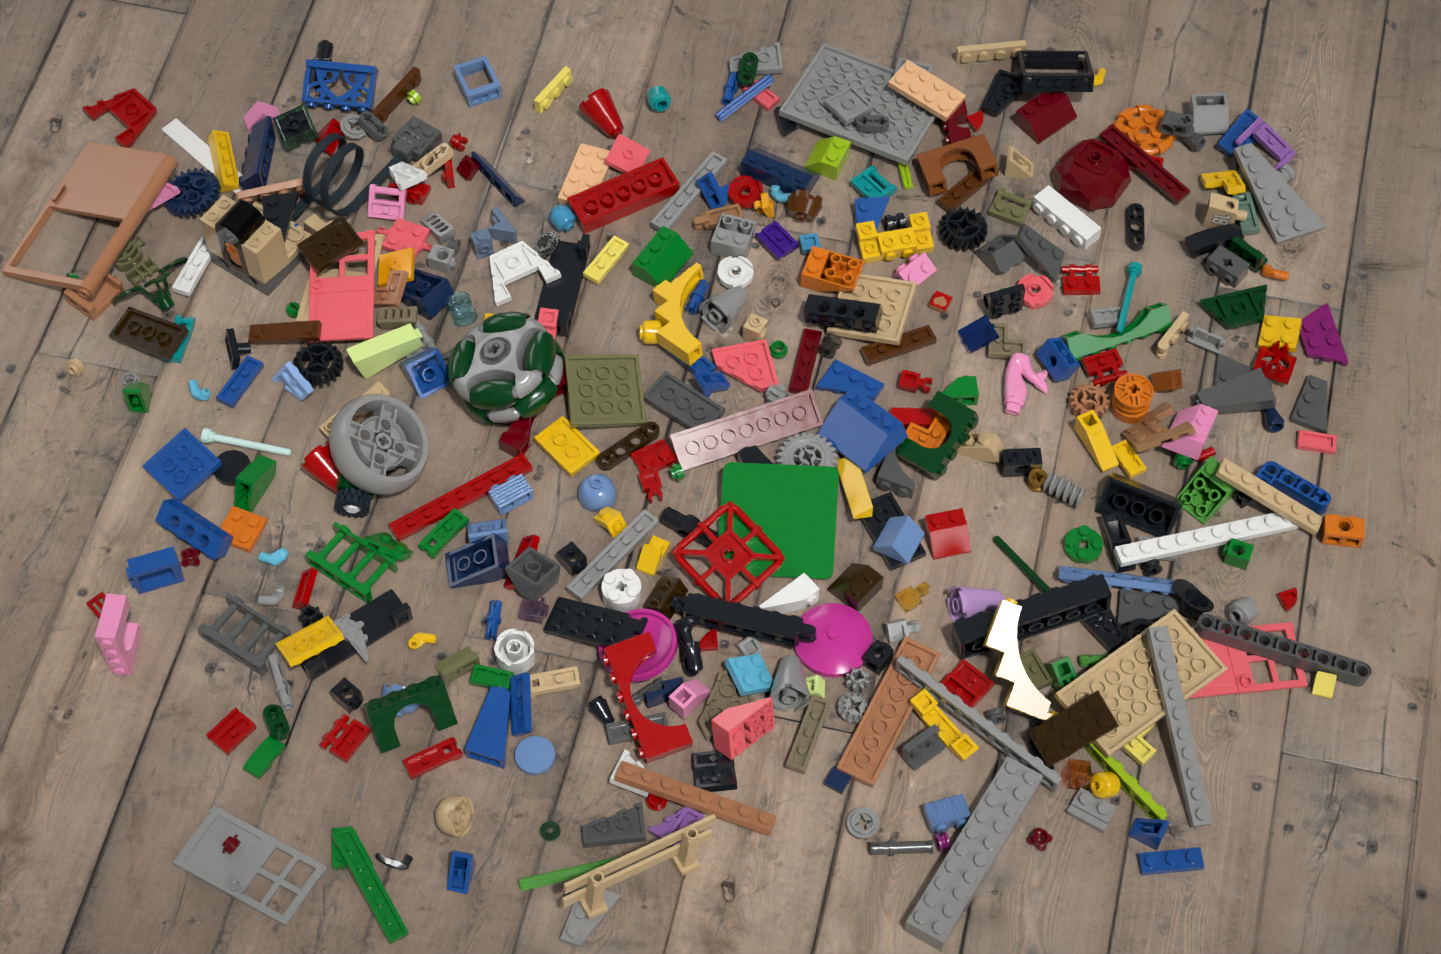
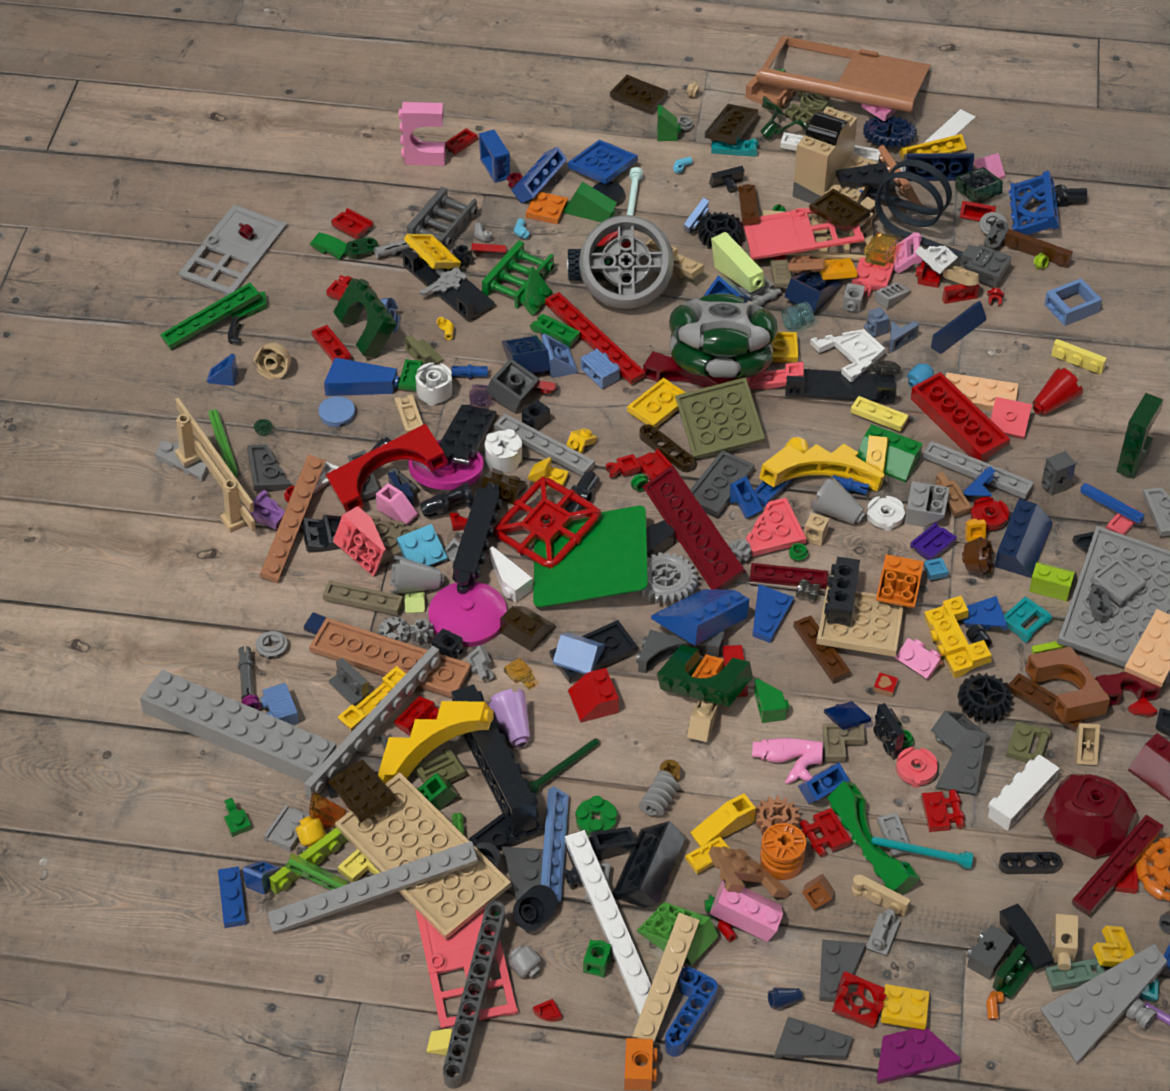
camera: 85 degrees right, 10 degrees down
(68, 421) = (639, 93): none -> dark brown plate
(130, 109) = (971, 86): red wing -> none
(240, 381) = (695, 186): blue plate -> none
(343, 689) = (387, 285): black brick -> none
(384, 221) = (880, 249): none -> clear yellow brick
(454, 244) = (872, 301): dark grey bush -> none
(468, 167) = (964, 305): dark red plate -> none
(521, 704) = (382, 394): blue plate -> none
(597, 492) = (611, 428): medium blue cylinder -> none
(658, 98) = (1090, 436): teal head -> none
(667, 265) = (877, 452): none -> yellow plate
(691, 70) = (1136, 440): none -> dark green arch
(710, 128) = (1058, 473): none -> dark grey brick
(730, 88) = (1125, 494): blue pin -> none
(748, 70) = (1146, 499): dark green plate -> none
(778, 195) = (996, 540): medium azure arm -> none
(855, 489) = (629, 617): yellow slope -> none
(911, 381) = (776, 662): red plate -> none
(1020, 461) = (688, 755): black brick -> none
(1043, 834) = (255, 779): dark red plate -> none
(1082, 856) = (236, 820): none -> green plate
(1156, 777) = (314, 873): none -> bright green slope
(1237, 307) = (935, 965): dark green wing -> none
(1239, 394) = (806, 957): dark grey slope -> none
(1316, 442) = (761, 1045): coral tile -> none

